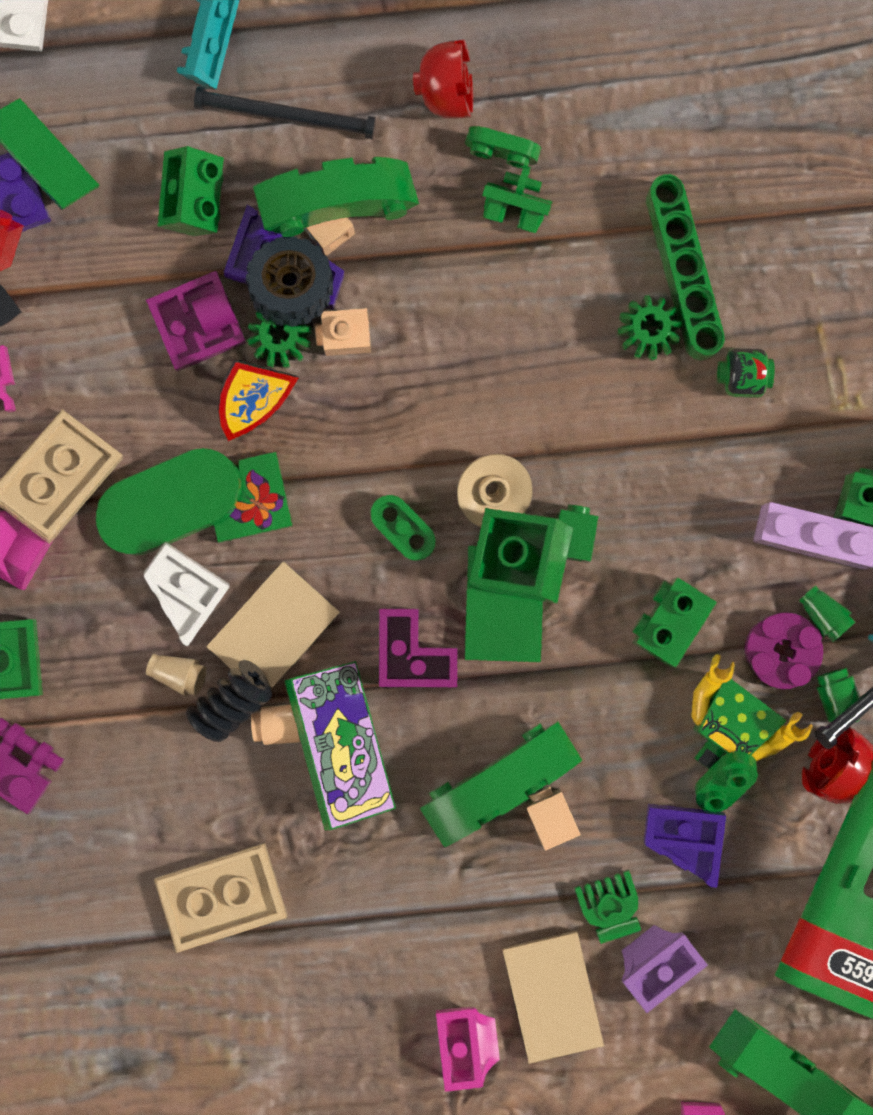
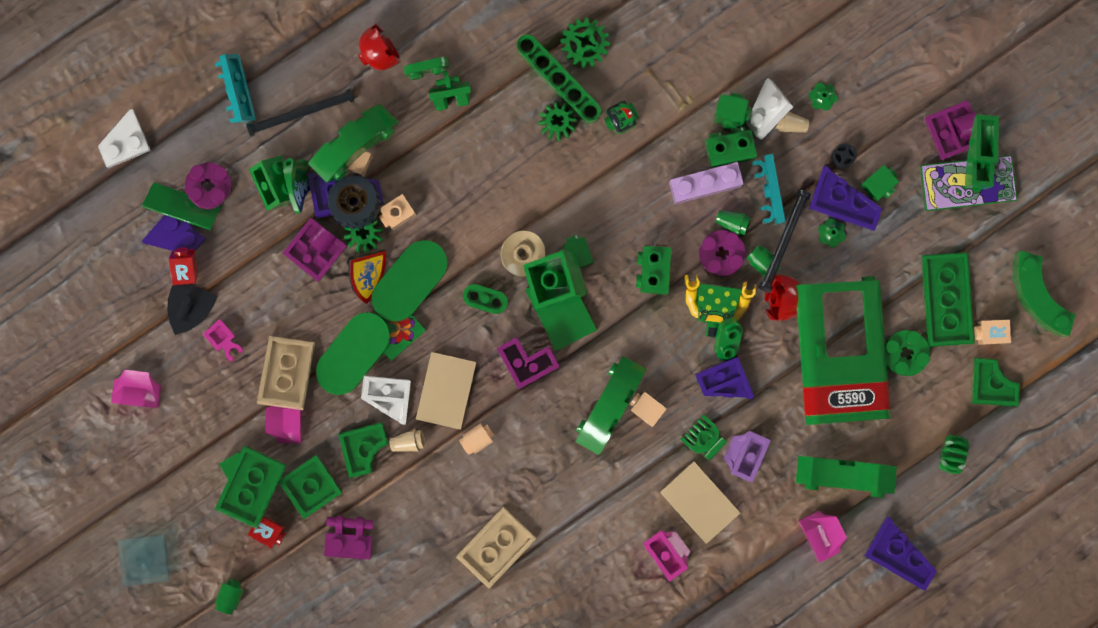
camera: 25 degrees left, 0 degrees up
(90, 123) = (200, 174): none -> magenta plate
(104, 643) = (361, 446): none -> green tile
(222, 207) = (296, 182): none -> green arm
(230, 702) = (446, 441): black piece -> none
(308, 441) = (409, 281): none -> green tile
(340, 745) = (515, 431): tile -> none
(745, 223) = (594, 47): none -> green gear

